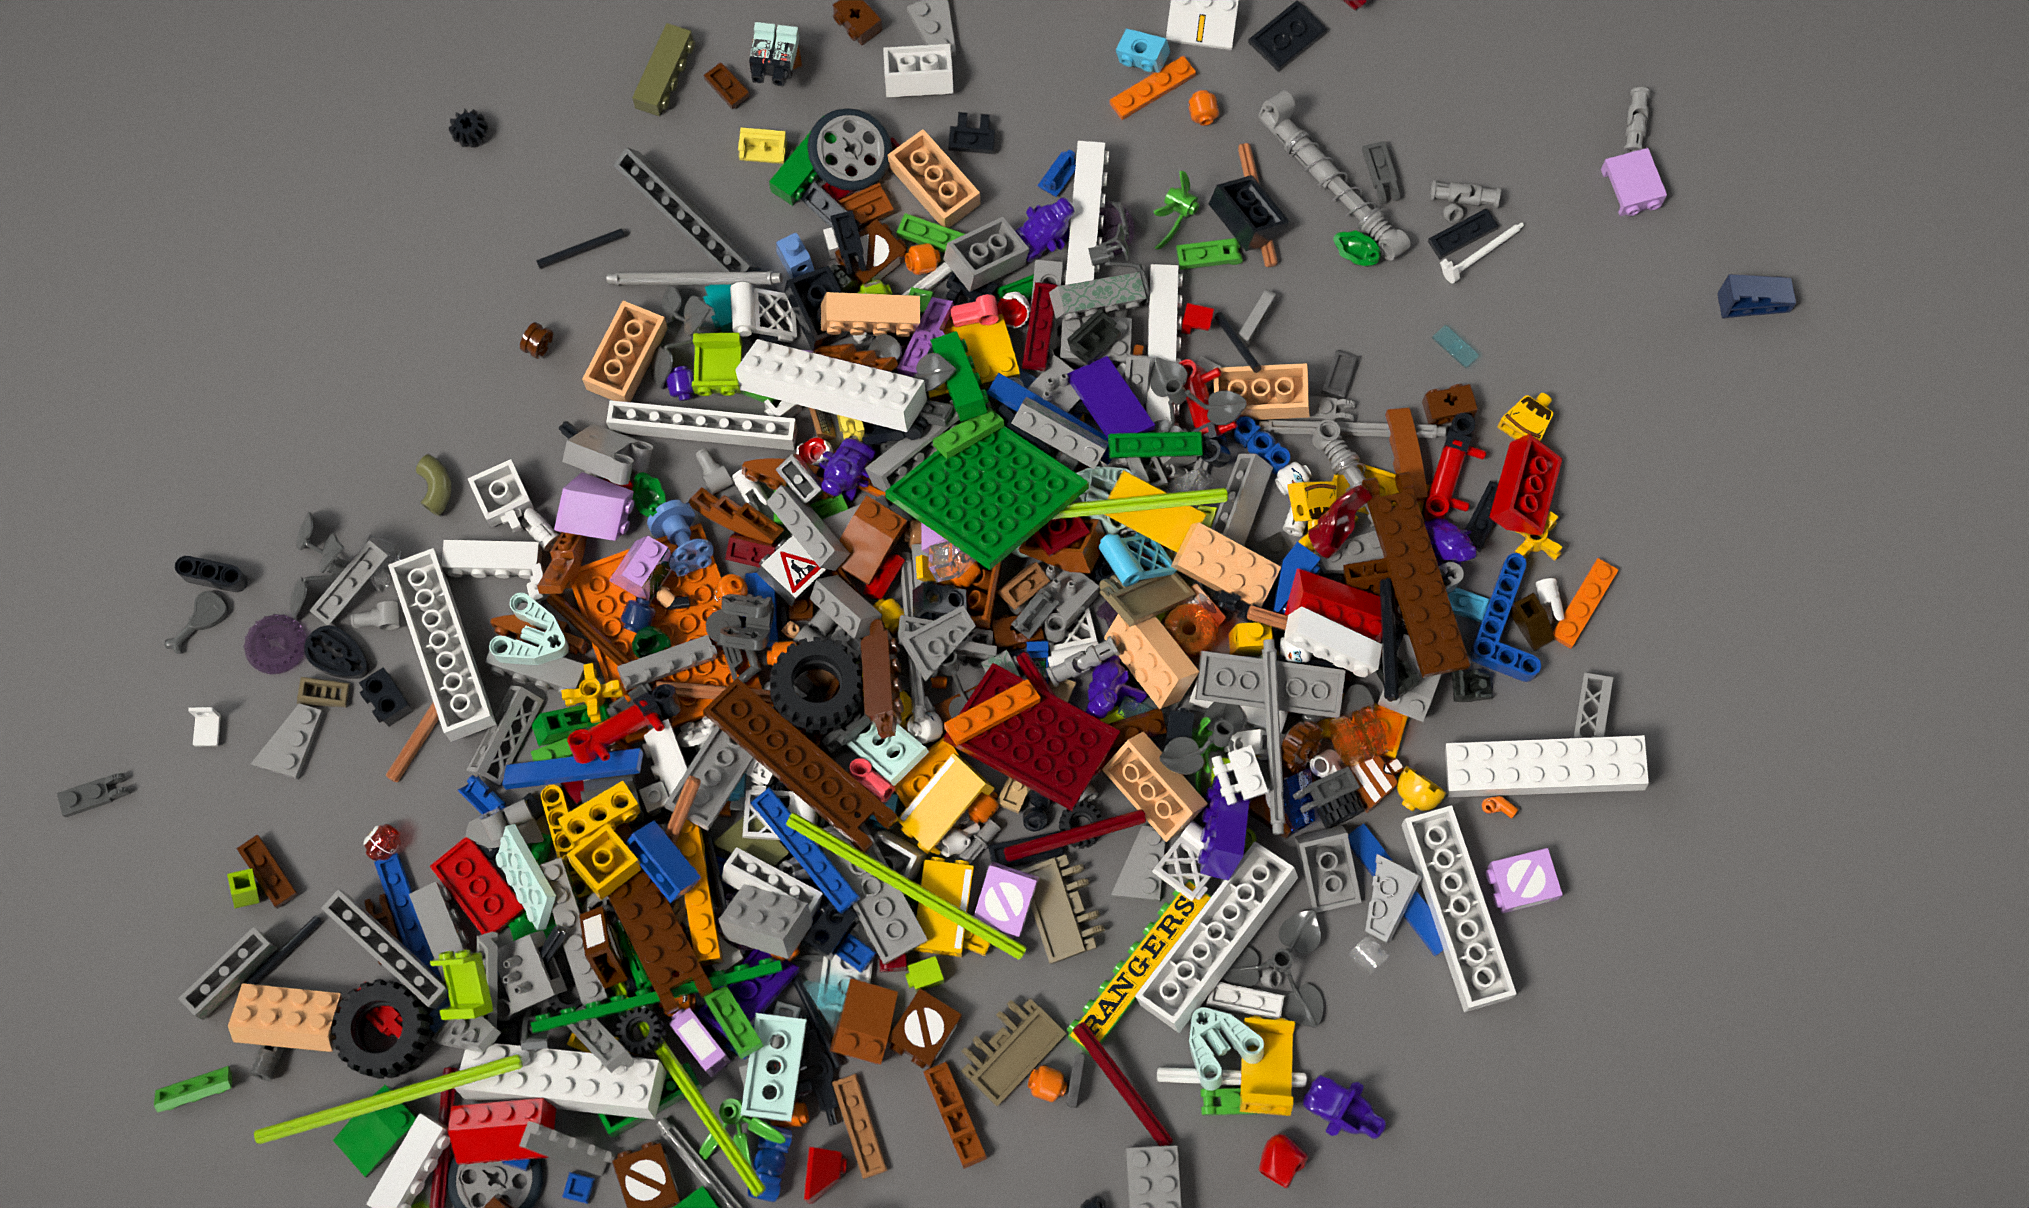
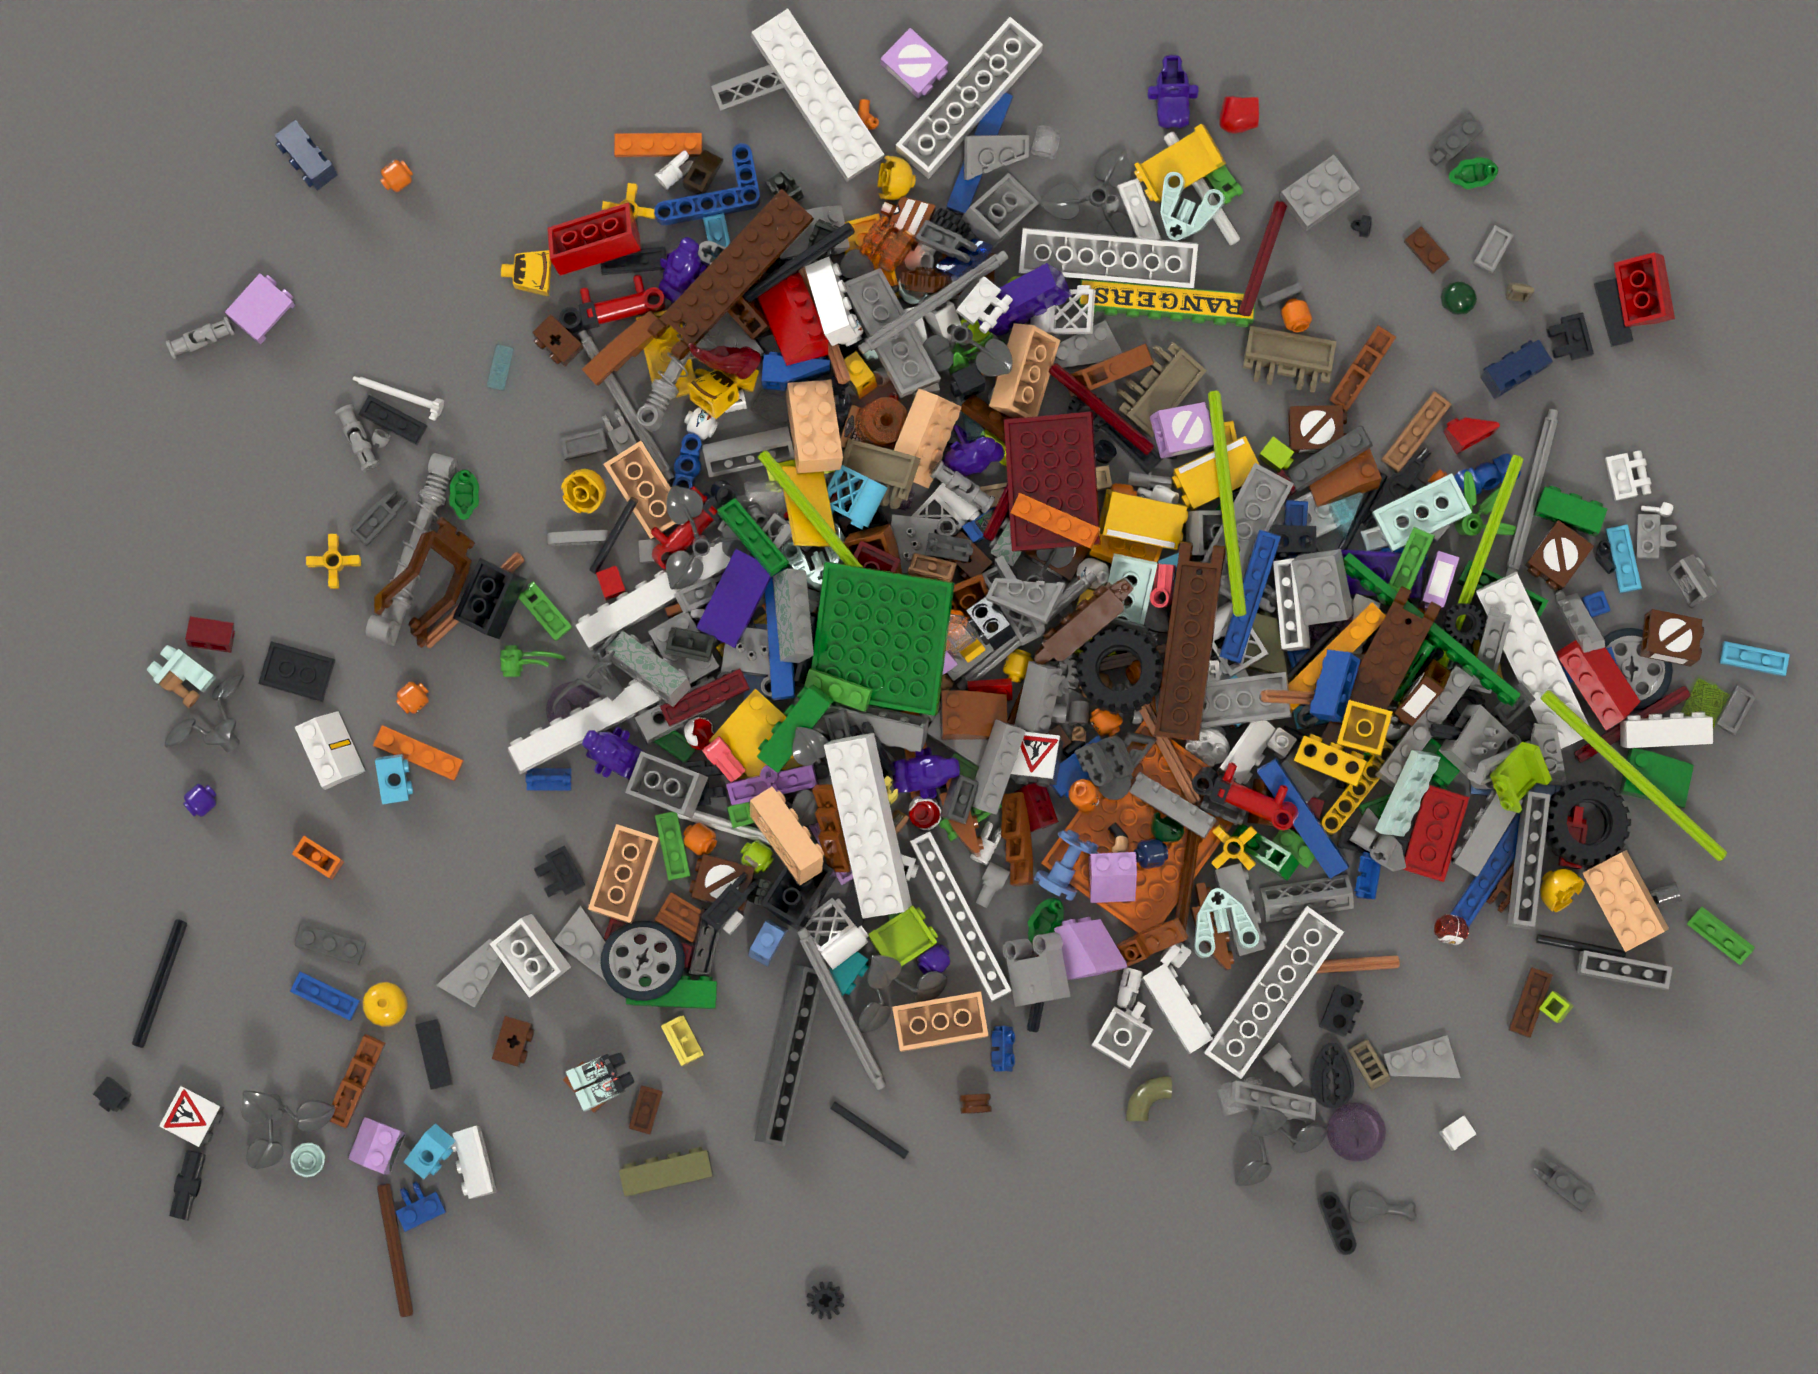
camera: 125 degrees left, 10 degrees up
(345, 965) = (1559, 888): none -> yellow cylinder
(558, 390) = (1004, 1039): none -> blue hinge
(885, 1017) = (1330, 458): none -> dark grey plate
(902, 120) = (582, 941): none -> light grey wing
(1107, 872) = (1113, 368): none -> dark orange slope
(1295, 343) = (584, 491): none -> yellow cylinder
(1318, 204) = (450, 547): none -> reddish brown piece
(1361, 121) = (333, 550): none -> yellow pin
(1690, 360) = (396, 175): none -> orange head

